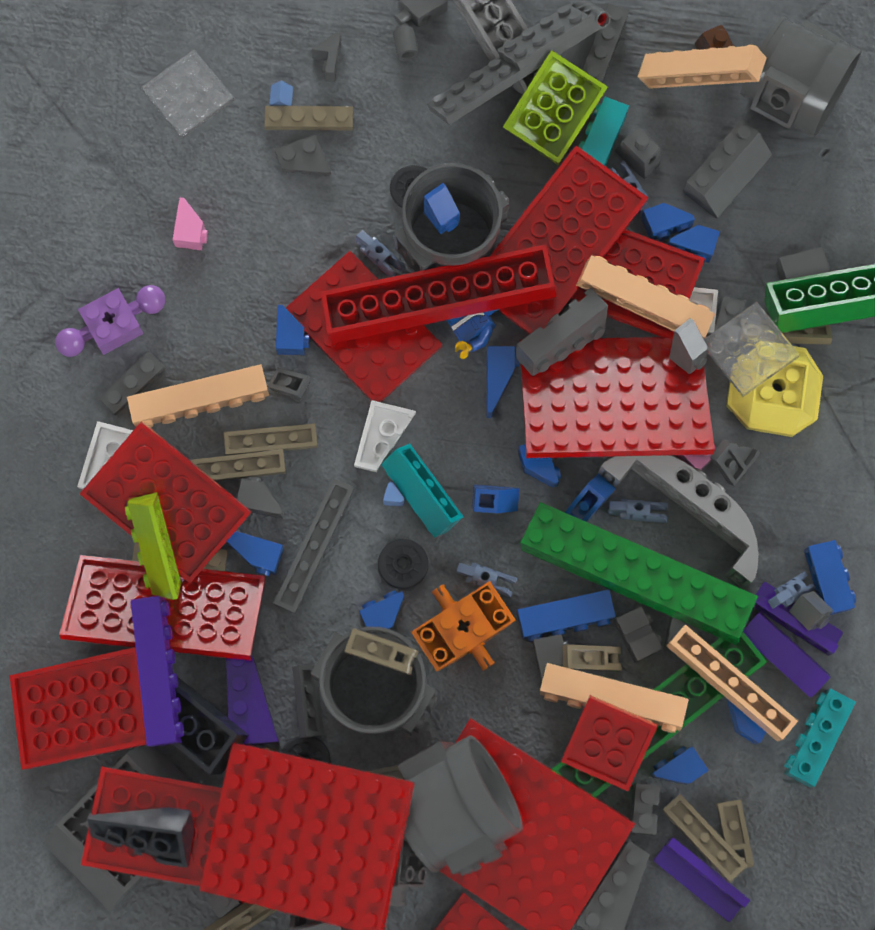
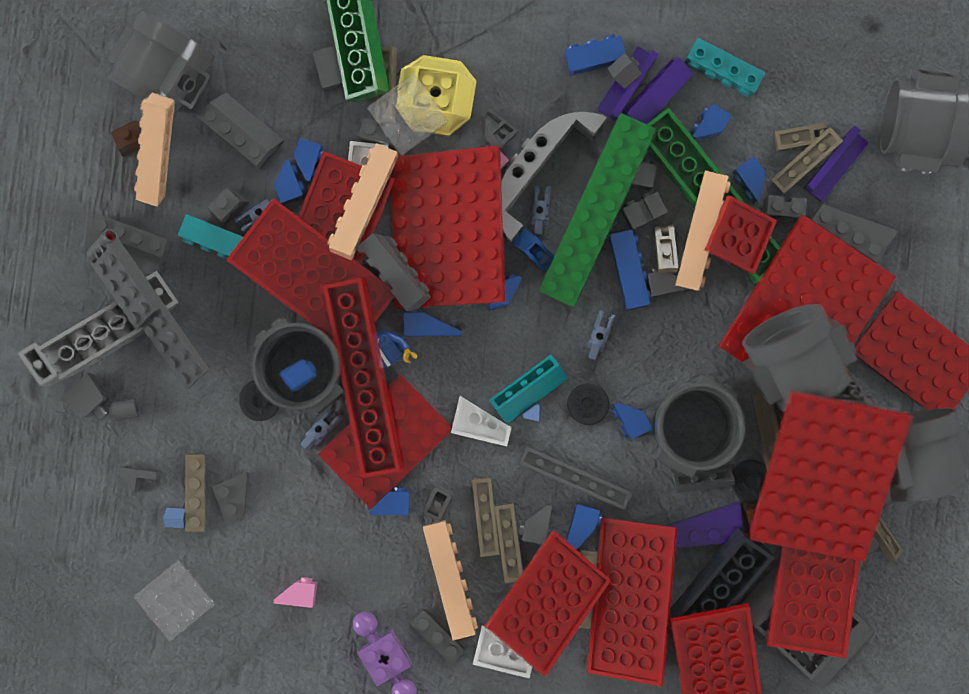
camera: 80 degrees left, 10 degrees up
(154, 545) = (588, 610): lime slope -> none
(156, 671) = (692, 605): dark purple brick -> none
(157, 832) = (820, 596): black wedge -> none
(380, 651) = (680, 420): dark tan plate -> none
(480, 610) = (654, 370): orange slope -> none
(495, 499) = (534, 329): blue slope -> none
(555, 107) = (190, 277): lime slope -> none
(688, 347) = (407, 165): slope -> none
(732, 683) = (690, 135): light nougat brick -> none
(791, 591) = (608, 86): sand blue hinge -> none

